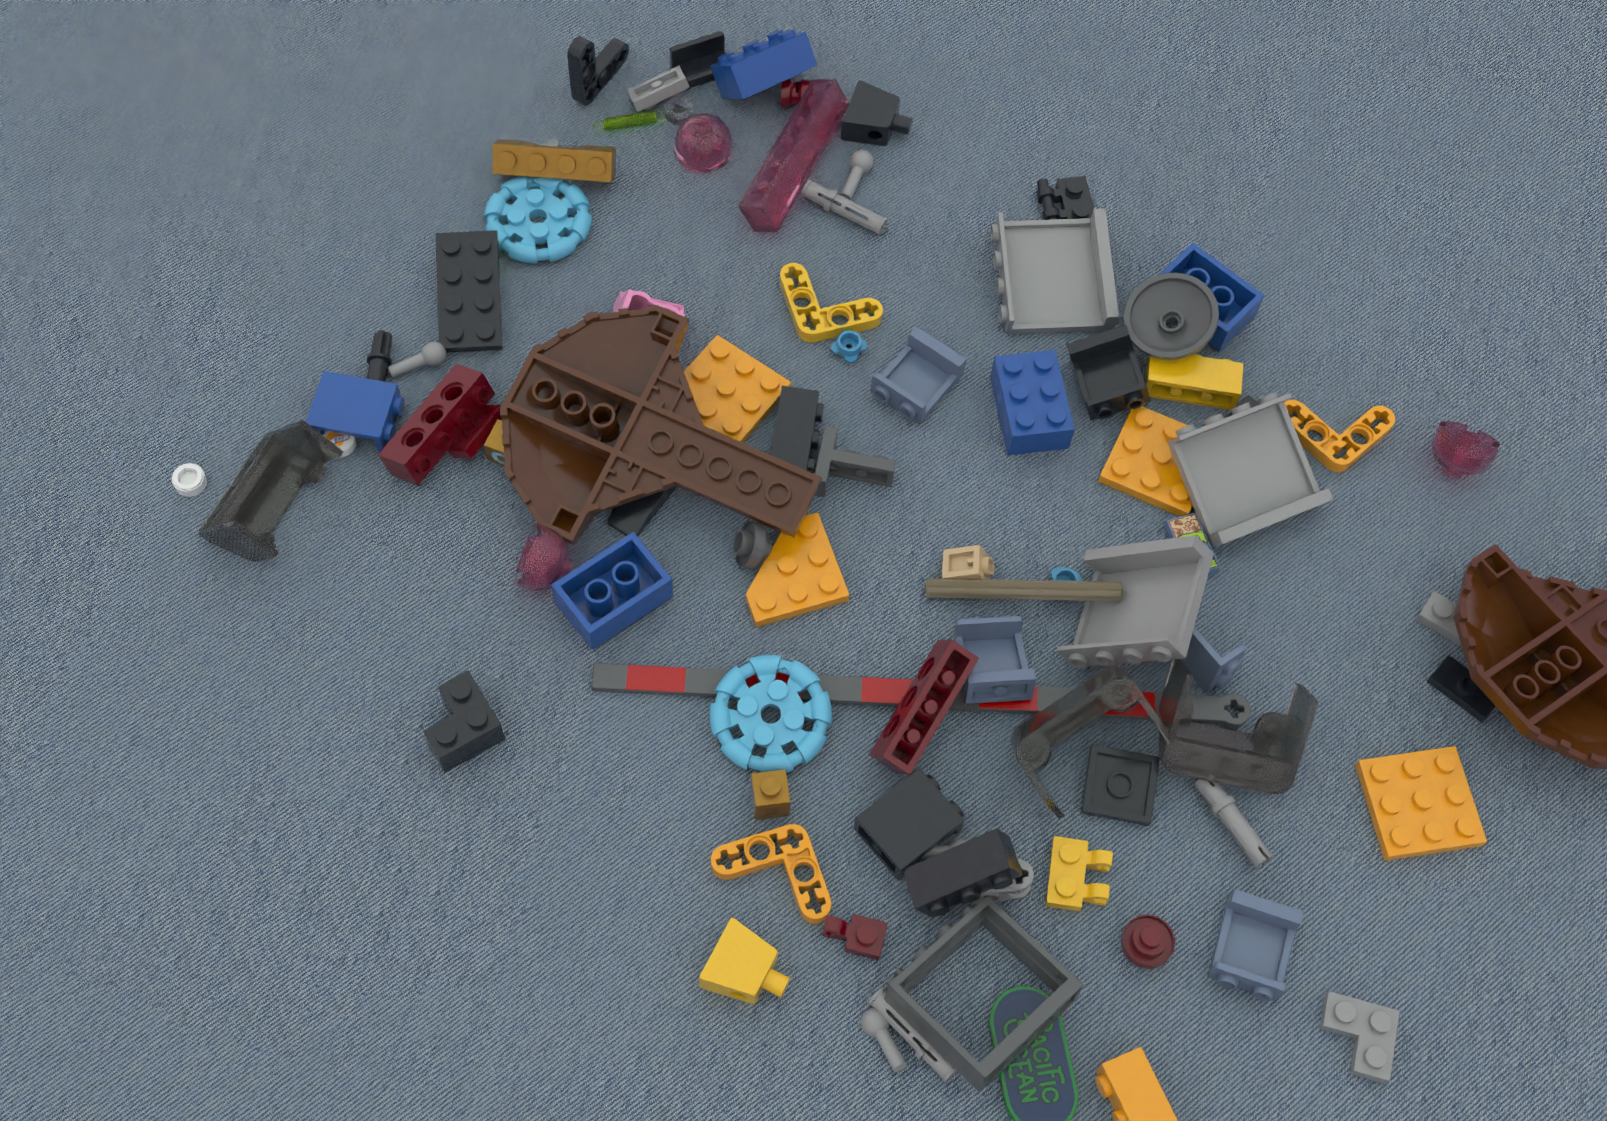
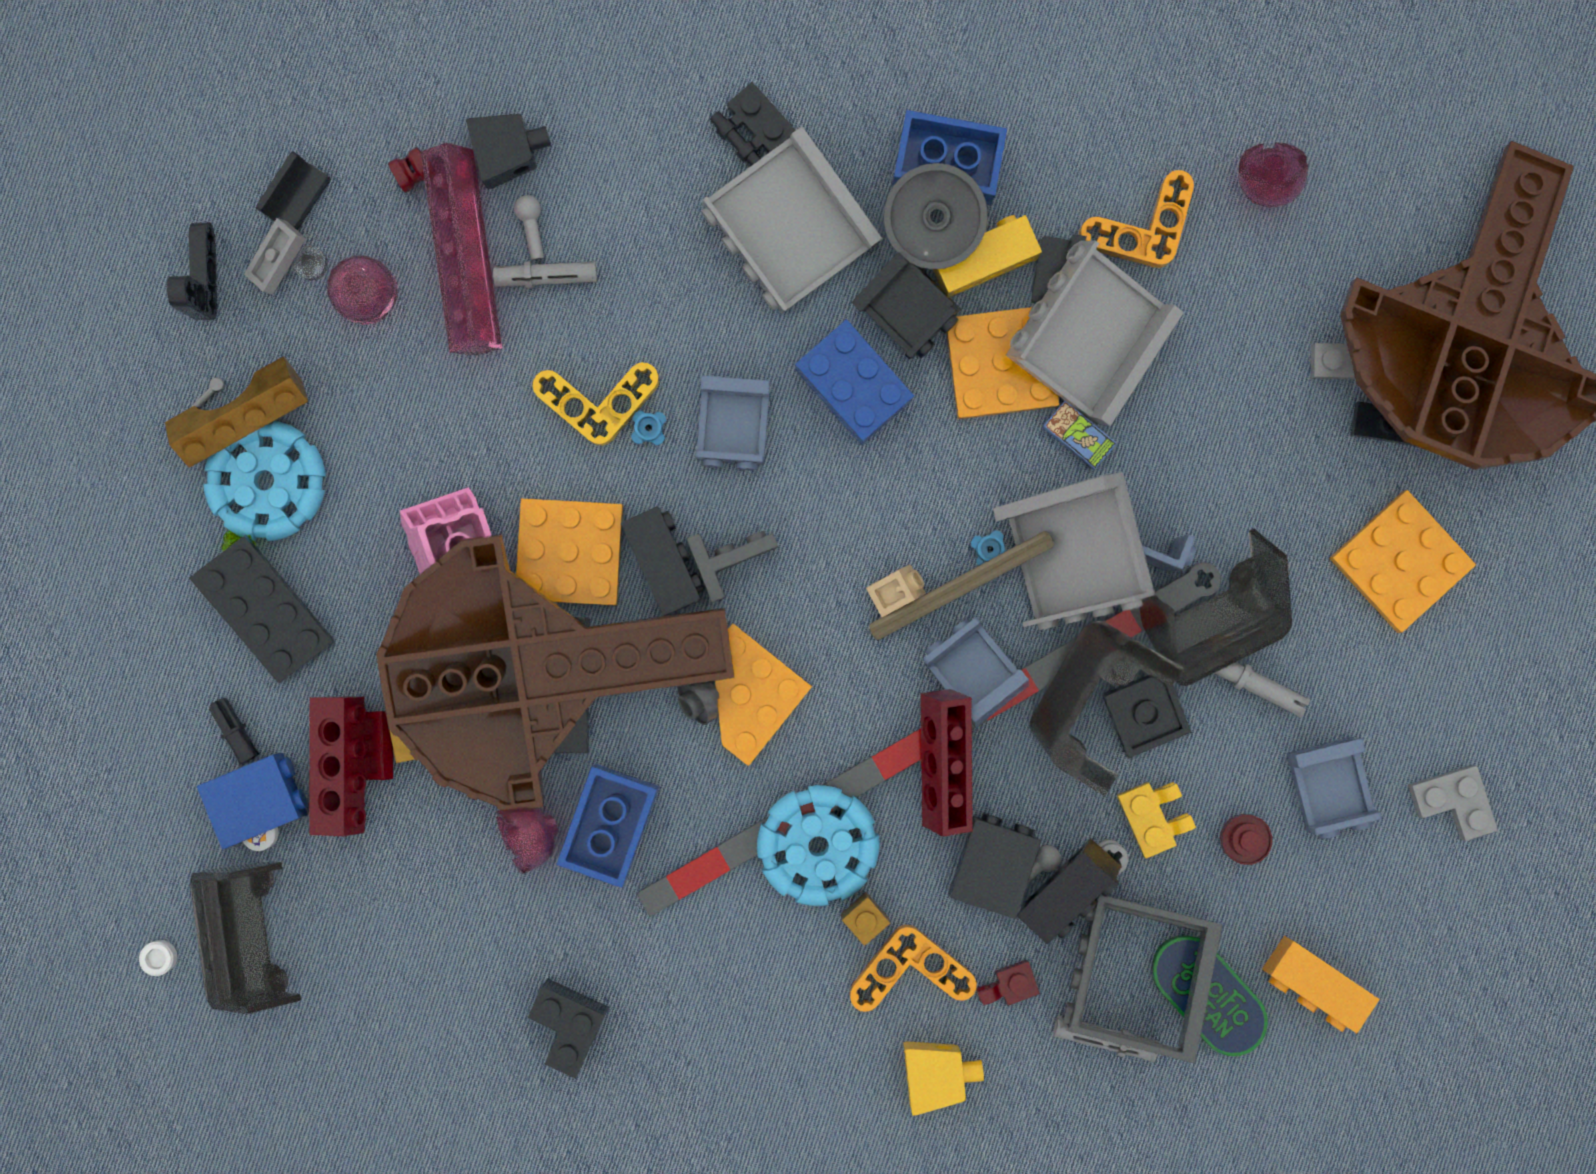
camera: 30 degrees left, 25 degrees up
(431, 354) = (276, 693): light grey bar -> none
(629, 120) = (271, 307): clear neon green piece -> none
(763, 64) = (361, 165): blue brick -> none
(876, 1026) = (1071, 1049): light grey bar -> none

